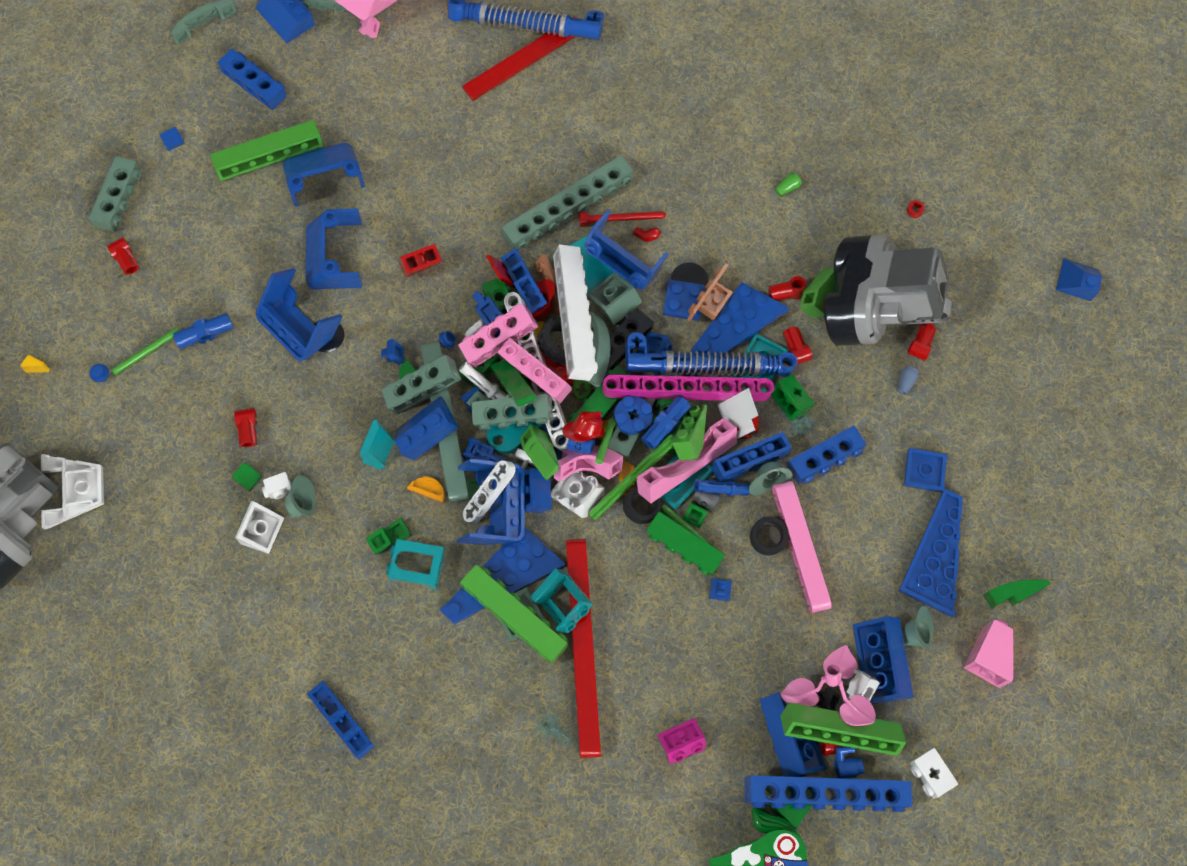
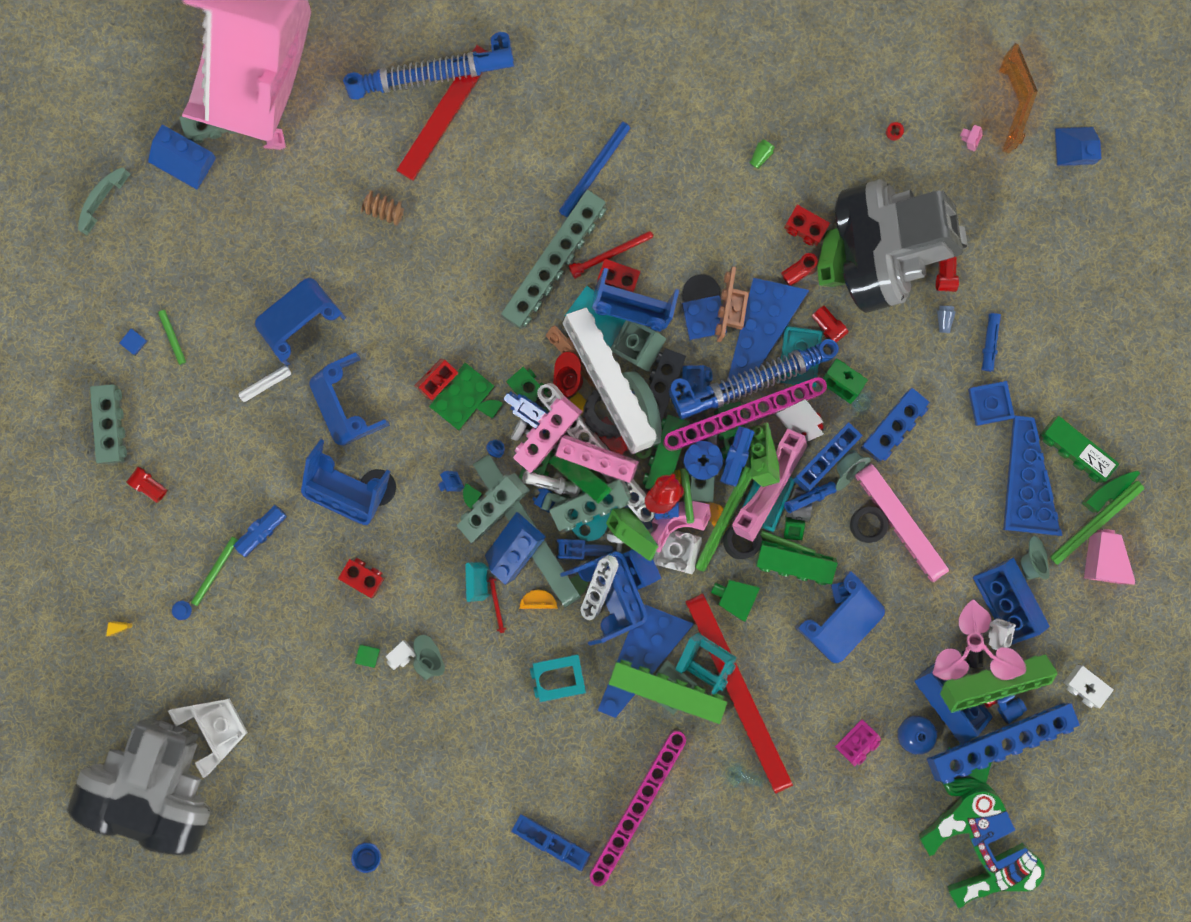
camera: 20 degrees left, 15 degrees up
(151, 659) = (362, 860): none -> blue hair
(206, 147) = (171, 336): none -> bright green bar
(231, 66) = (153, 240): blue brick -> none
(246, 427) = (344, 607): red piece -> none
(259, 528) = (402, 700): white slope -> none
(266, 150) = (234, 319): bright green brick -> none
(268, 212) = (264, 383): none -> white axle
(272, 406) = (359, 582): none -> red brick
(385, 537) = (522, 660): green slope -> none
(392, 453) = (497, 609): none -> red axle
(434, 727) = (636, 817): none -> dark pink beam
(436, 286) = (462, 396): none -> green plate
(437, 109) = (382, 208): none -> medium nougat piece
(458, 304) = (490, 407): none -> green tile
(500, 270) = (519, 360): red piece -> none
(524, 281) = (545, 361): blue slope -> none
(615, 554) = (736, 598): none -> green torso
(622, 235) = (620, 272): none -> red brick
(638, 143) = (594, 169): none -> blue axle
(648, 235) = (644, 263): red arm -> none
(711, 618) = (847, 623): none -> blue windscreen
(735, 760) = (909, 732): none -> blue cylinder
(810, 253) = (809, 220): none -> red brick
(940, 422) = (989, 351): none -> blue pin
(984, 237) = (972, 137): none -> bright pink tile
(991, 614) = (1097, 522): none -> bright green axle
(997, 542) = (1079, 449): none -> green brick
(1045, 209) = (1025, 90): none -> clear orange windscreen

